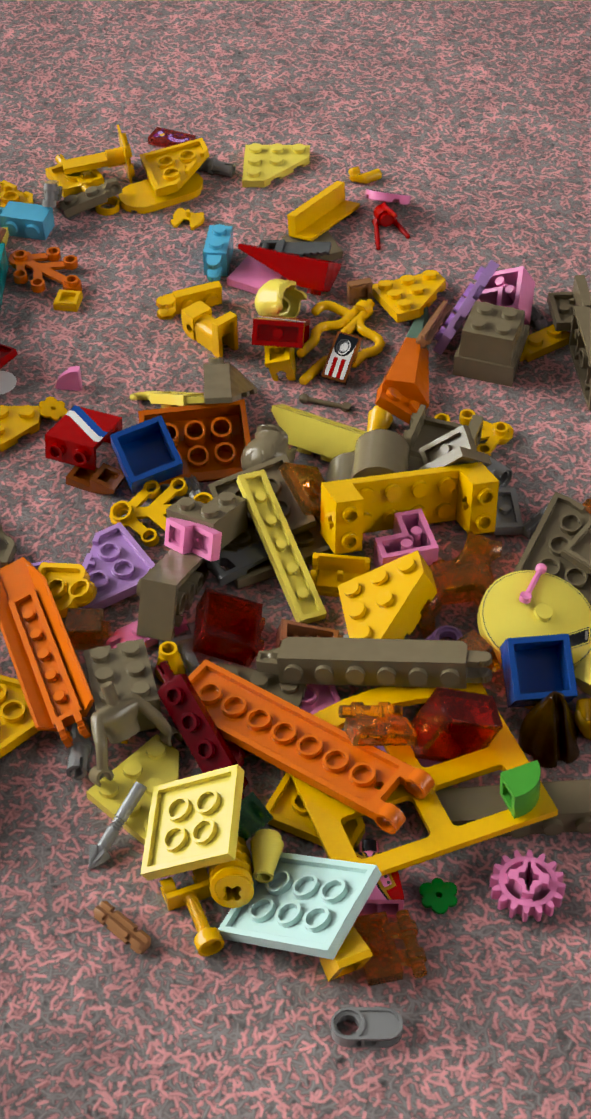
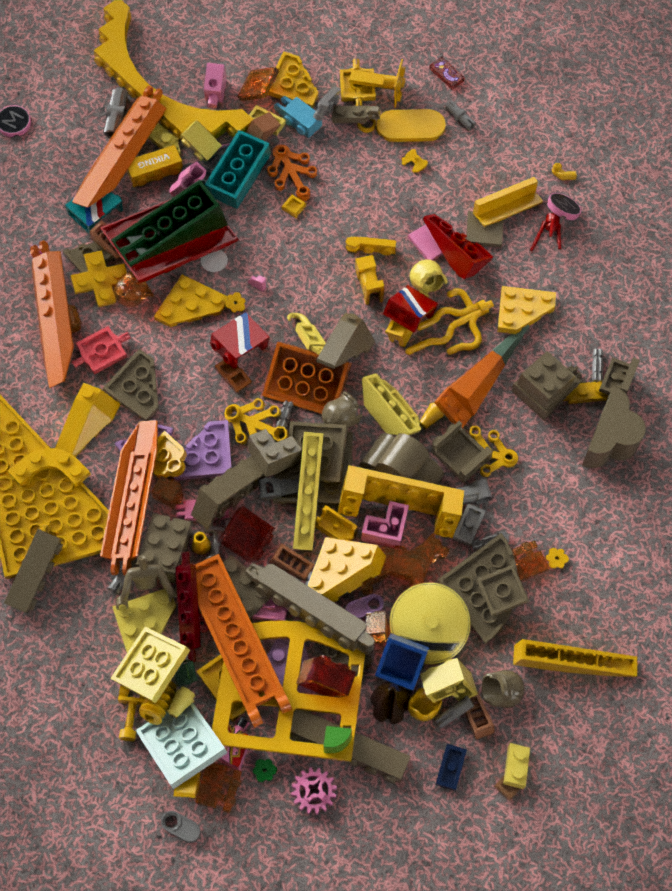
camera: 25 degrees right, 20 degrees up
(99, 852) = (100, 649): light grey piece -> none
(122, 927) = (89, 702): medium nougat axle -> none
(146, 453) = (265, 379): blue piece -> none
(174, 165) = (428, 108): yellow plate -> none
(193, 538) = (254, 462): bright pink slope -> none
(218, 251) = (413, 209): medium azure hinge -> none
(268, 162) = (505, 129): light yellow plate -> none
(300, 248) = (464, 226): dark grey piece -> none
(305, 486) = (345, 453): clear orange tile -> none
(341, 357) = (440, 346): slope -> none
(345, 407) = (422, 386): dark tan hinge -> none
(359, 290) = (489, 290): medium nougat tile -> none
(377, 725) = (282, 658): clear orange plate -> none
(434, 324) = (520, 346): medium nougat axle -> none
(452, 449) = (450, 473): dark tan bracket -> none
(464, 306) = (548, 341): lavender plate -> none
(511, 289) = (587, 345): bright pink brick -> none
(525, 596) = (426, 606): bright pink hinge -> none

